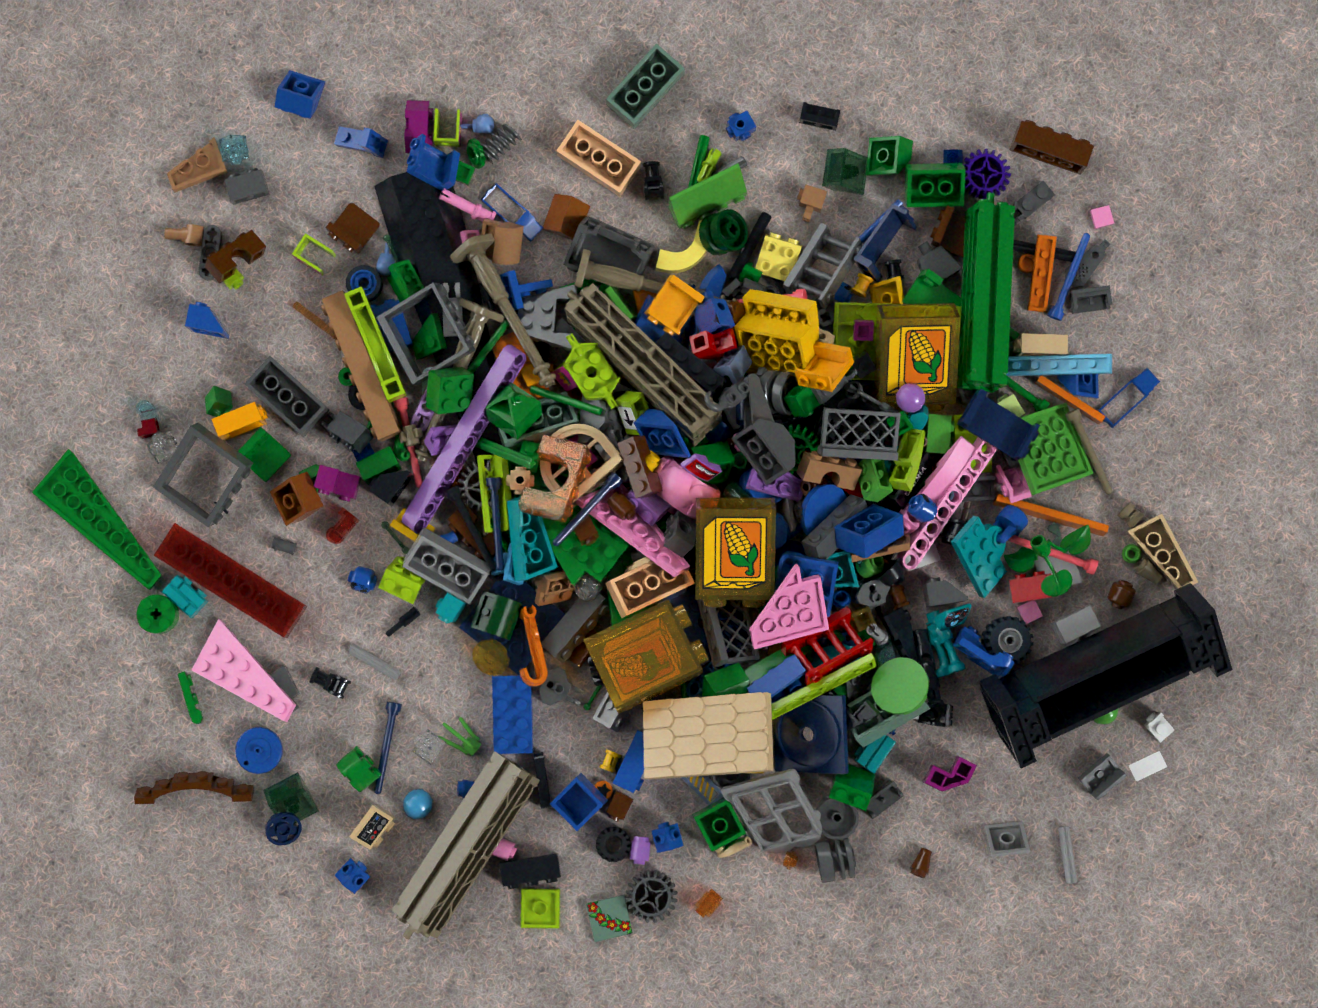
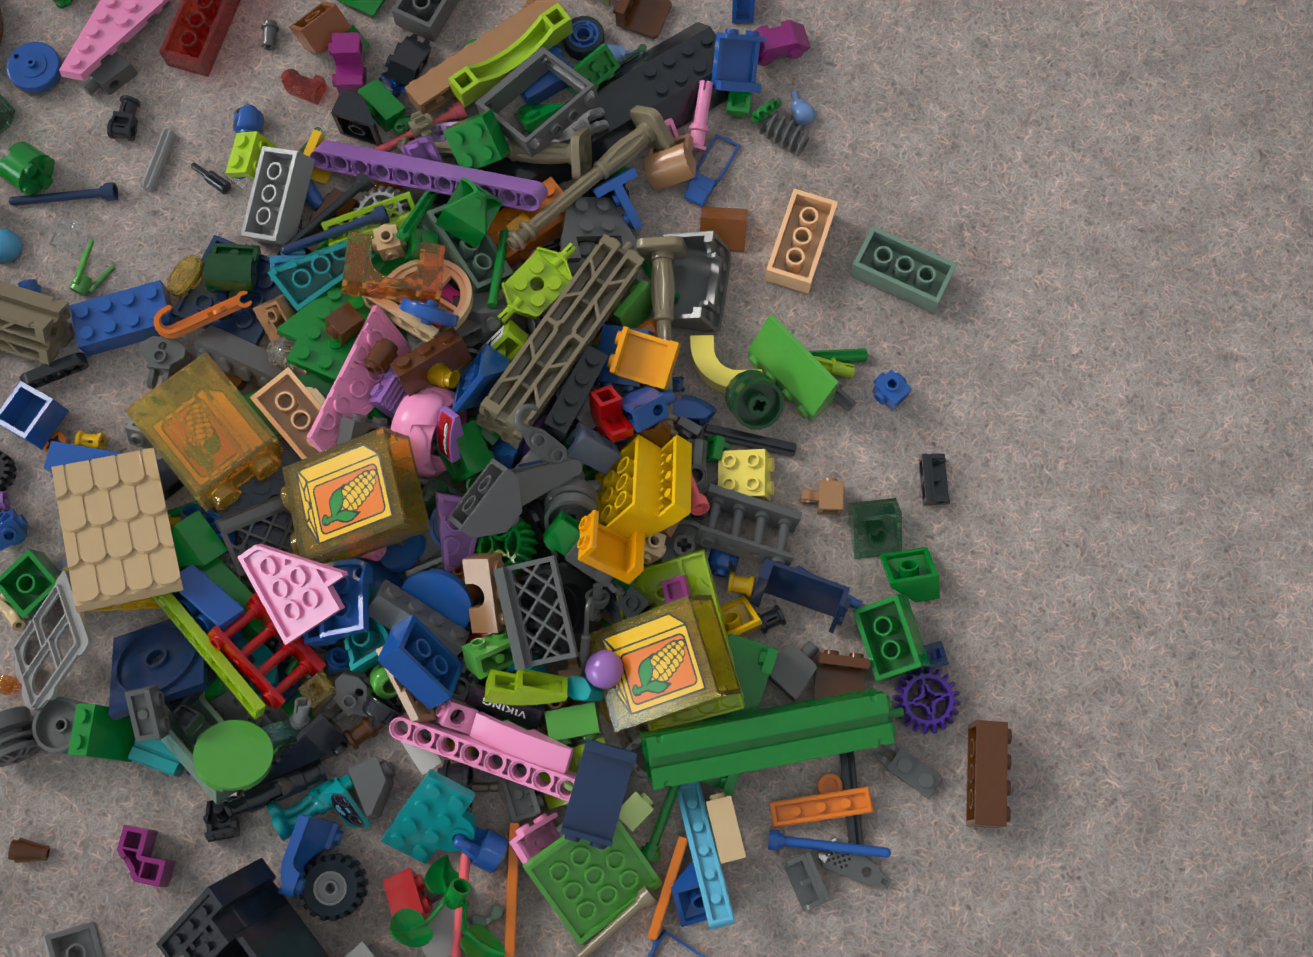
camera: 80 degrees right, 10 degrees down
(447, 141) = (786, 85): lime piece -> none
(450, 608) = (228, 214): teal brick -> none
(489, 345) = (534, 172): green bar -> none
(603, 457) = (429, 312): none -> blue wheel
(612, 482) = (407, 337): dark blue piece -> none
(619, 806) = (31, 465): reddish brown brick -> none
(653, 184) = (791, 310): black connector -> none
(854, 741) = (147, 713): none -> dark grey bracket
(883, 799) = (102, 780): dark grey hinge -> none
(905, 423) = (570, 668): green tile -> none
(922, 508) = (468, 723): blue head -> none
(1029, 611) = (378, 908): bright pink tile -> none
(1102, 217) = (919, 868): bright pink tile -> none

